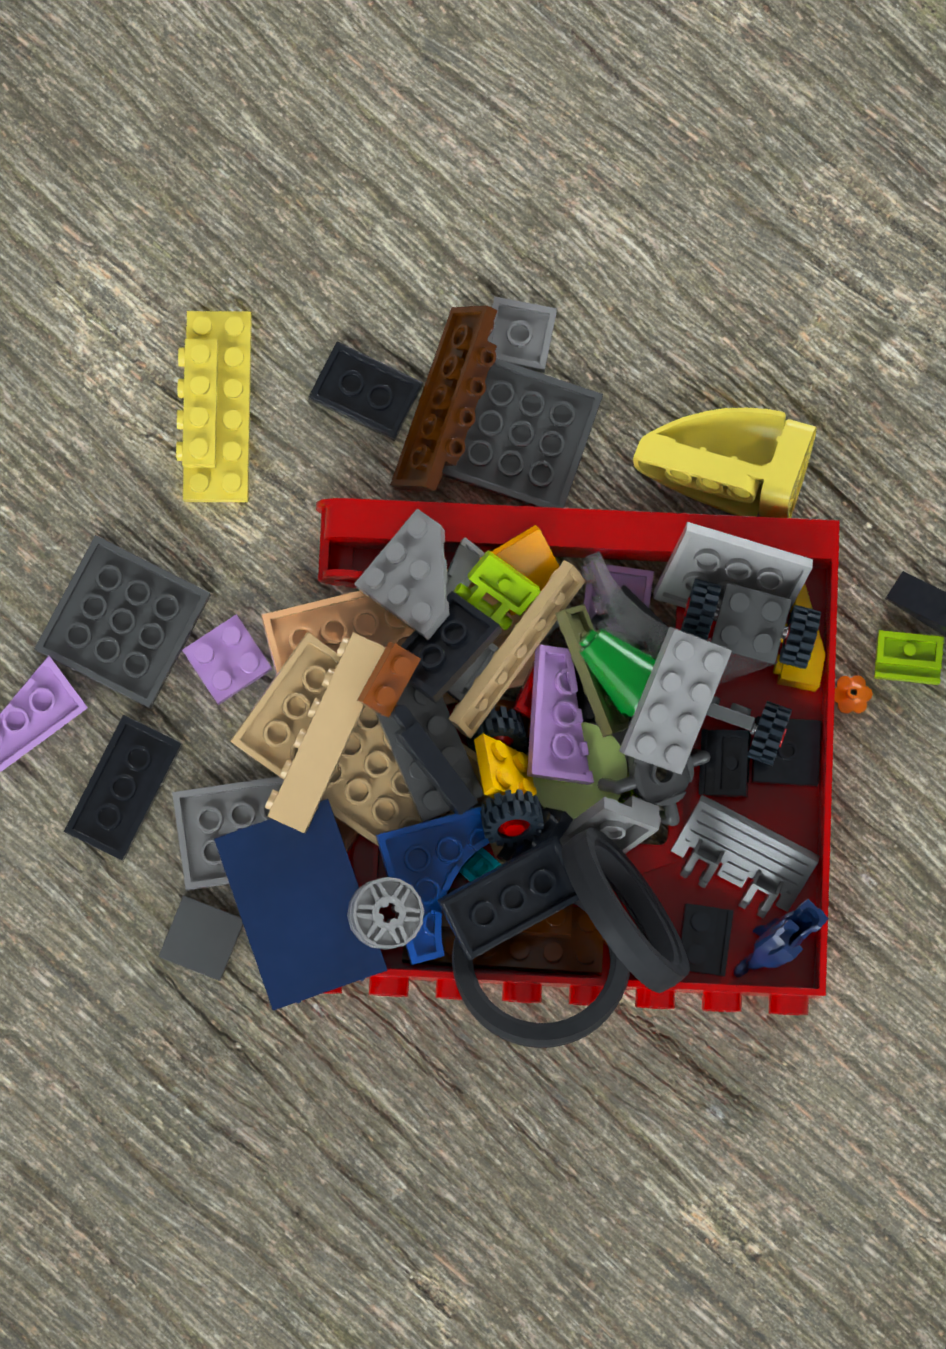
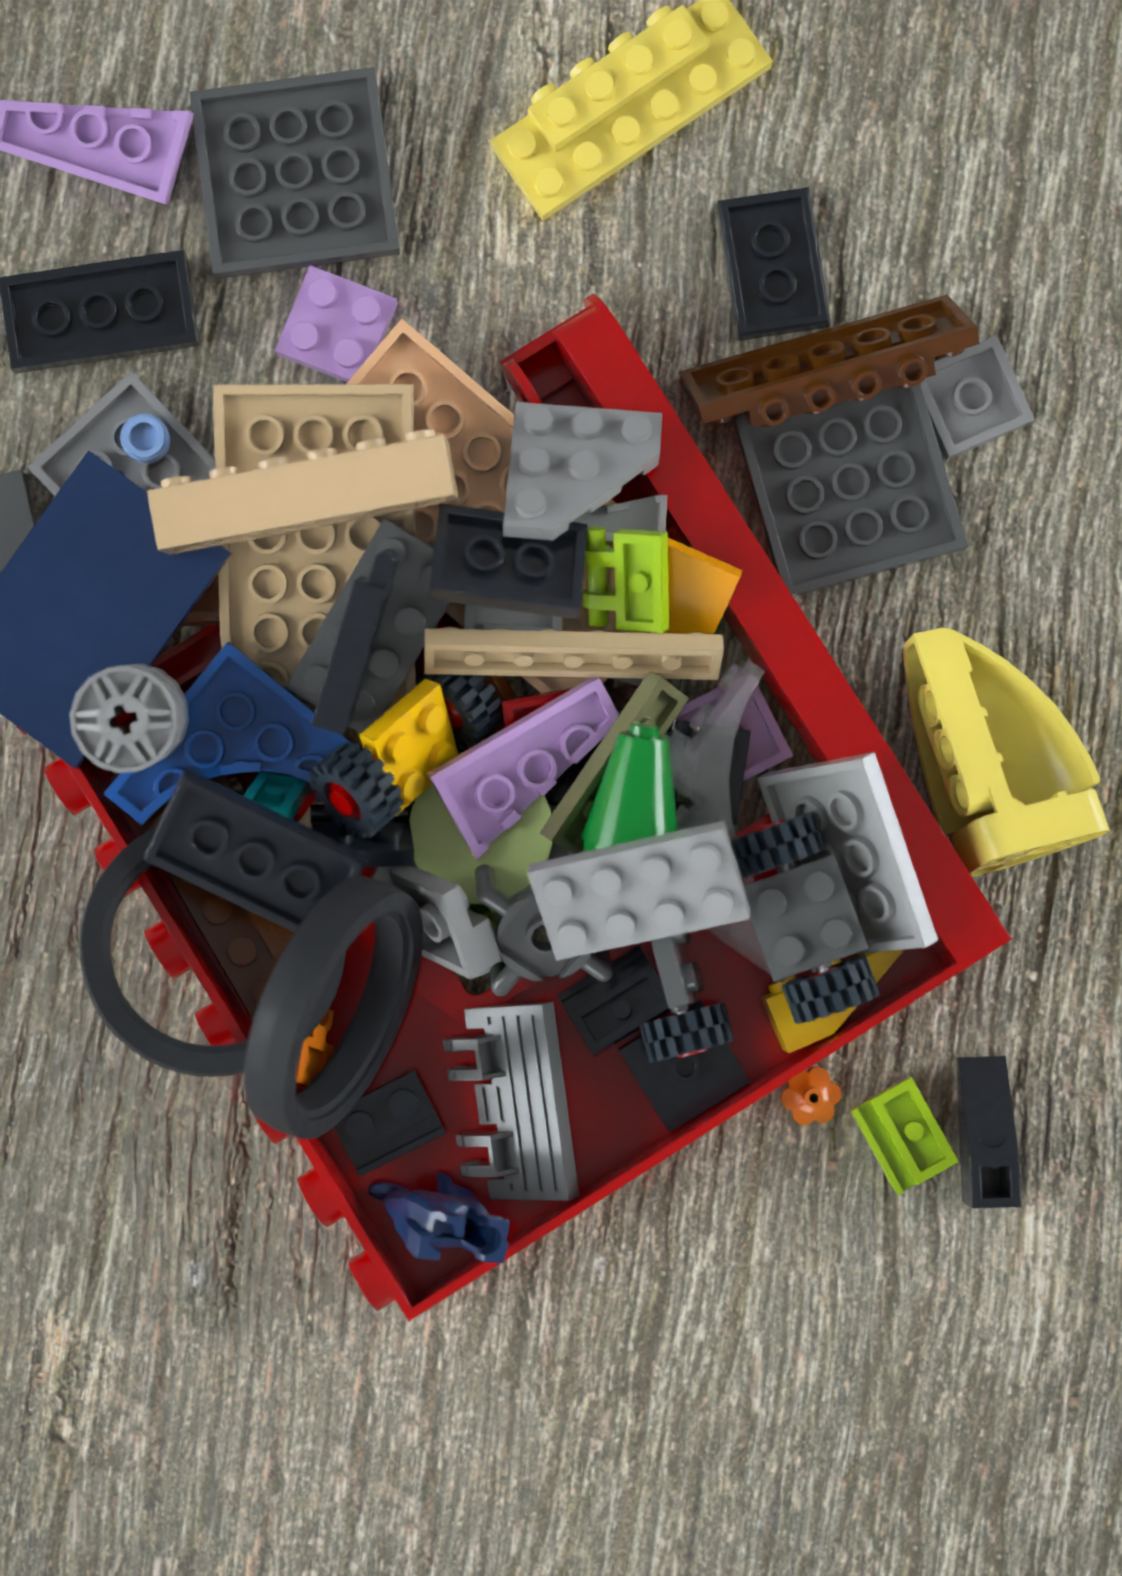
camera: 55 degrees right, 5 degrees up
(218, 810) = (145, 438): none -> light blue tile
(389, 679) = (415, 519): dark orange plate -> none

